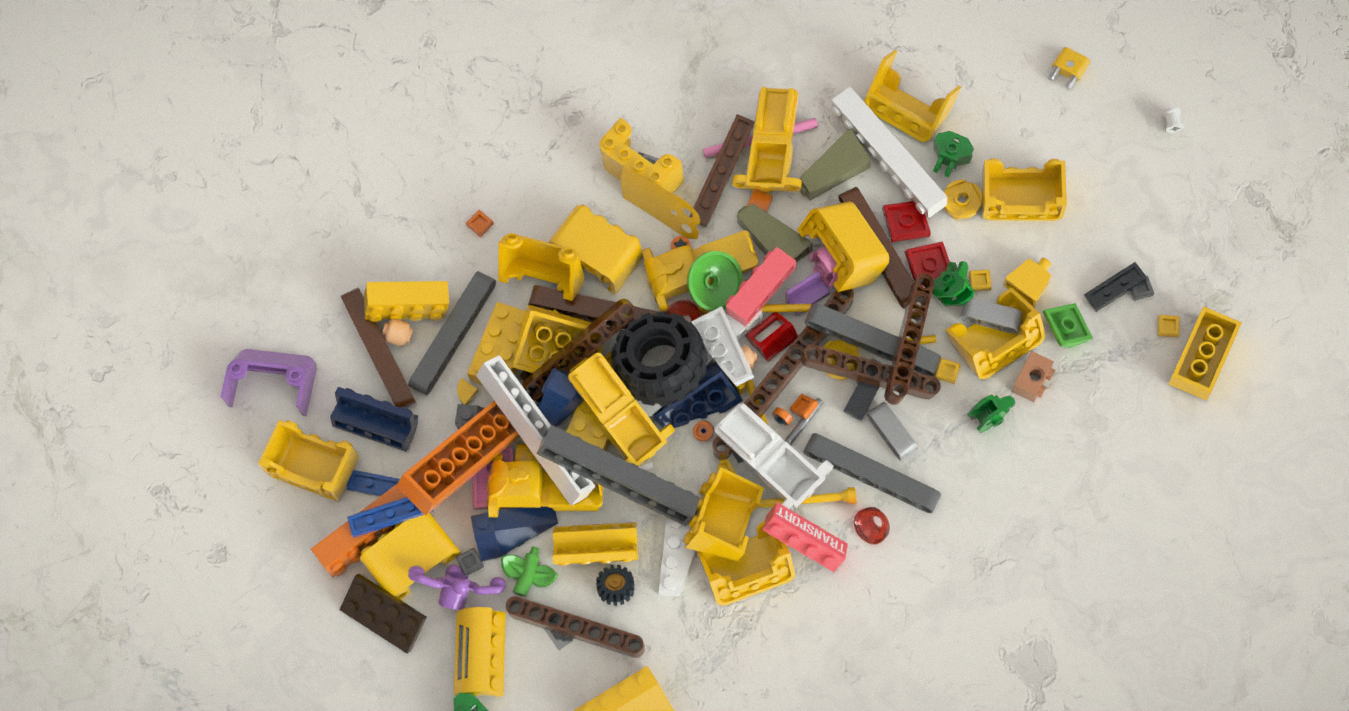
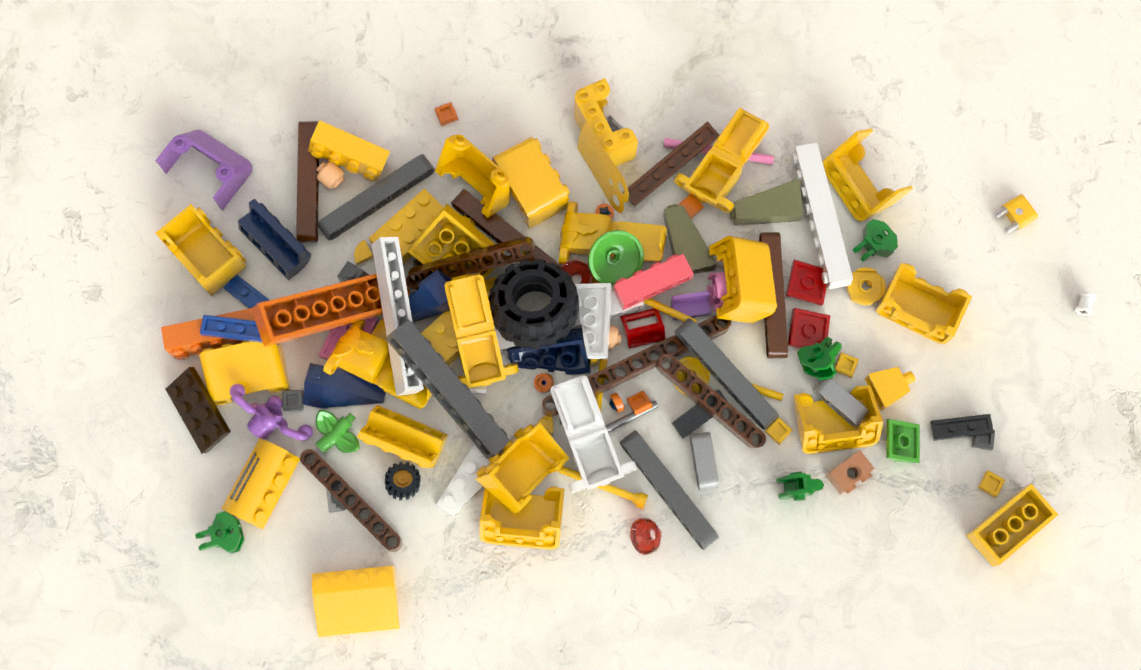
camera: 15 degrees right, 5 degrees up
(805, 537) = (582, 519): coral brick -> none
(905, 346) = (750, 393): reddish brown beam -> none

